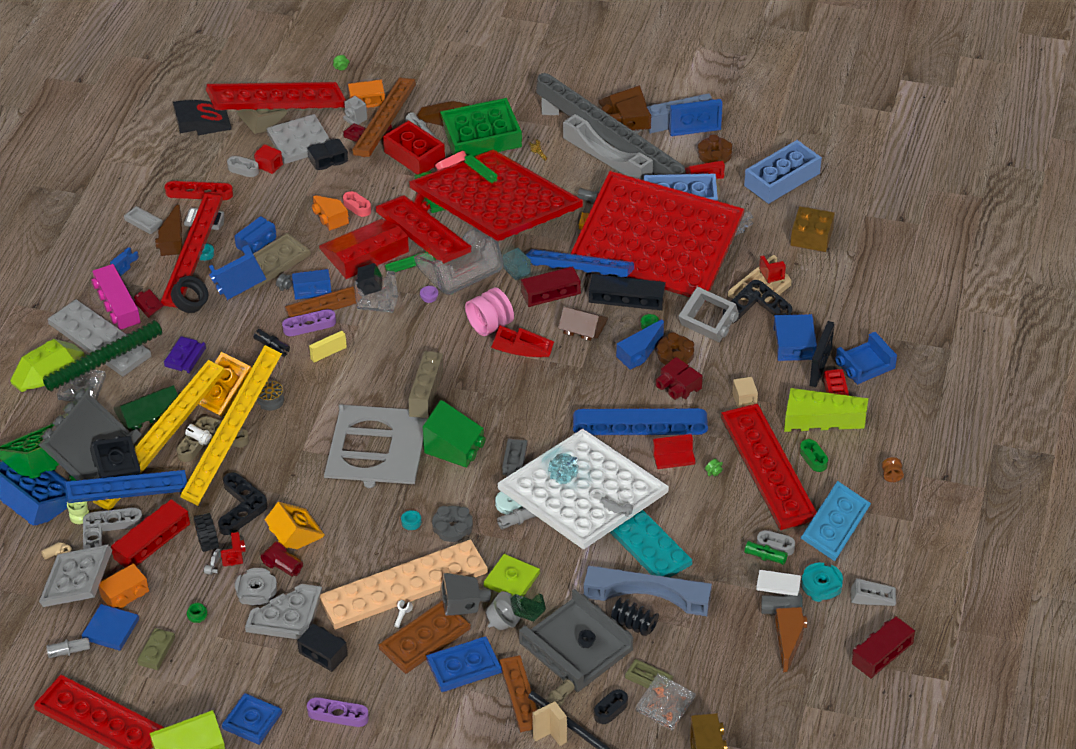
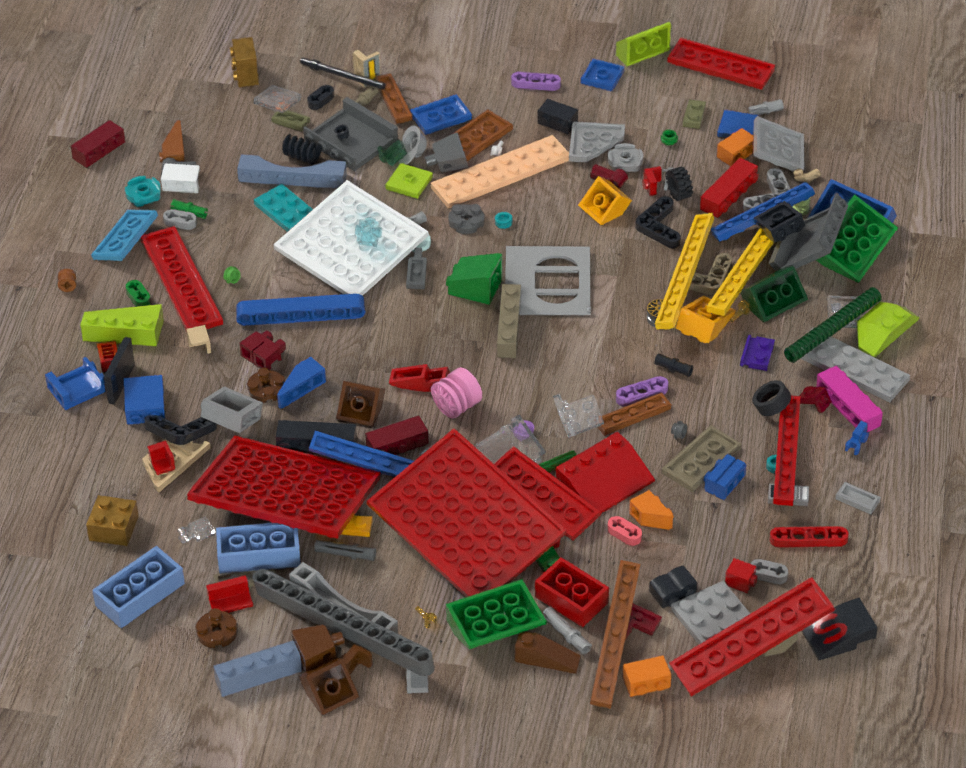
camera: 175 degrees right, 0 degrees up
(170, 234) = (816, 468): reddish brown slope -> none
(200, 435) = (717, 265): white pin -> none
(237, 275) = (726, 409): blue panel -> none
(311, 284) = (649, 424): blue hinge -> none
(327, 346) = (615, 361): light yellow tile -> none
(340, 62) = (691, 728): bright green plate -> none
(355, 111) = (654, 641): light grey brick -> none
(369, 279) = (586, 410): black brick -> none
(459, 157) = (525, 575): coral beam -> none
(480, 168) = (487, 549): green axle -> none
(616, 508) = (321, 209): light grey piece -> none
(648, 320) = (292, 413): green tile -> none
(673, 451) = (269, 288): red panel -> none
(695, 117) = (235, 646): blue plate -> none
(865, 593) = (101, 185): light grey slope -> none

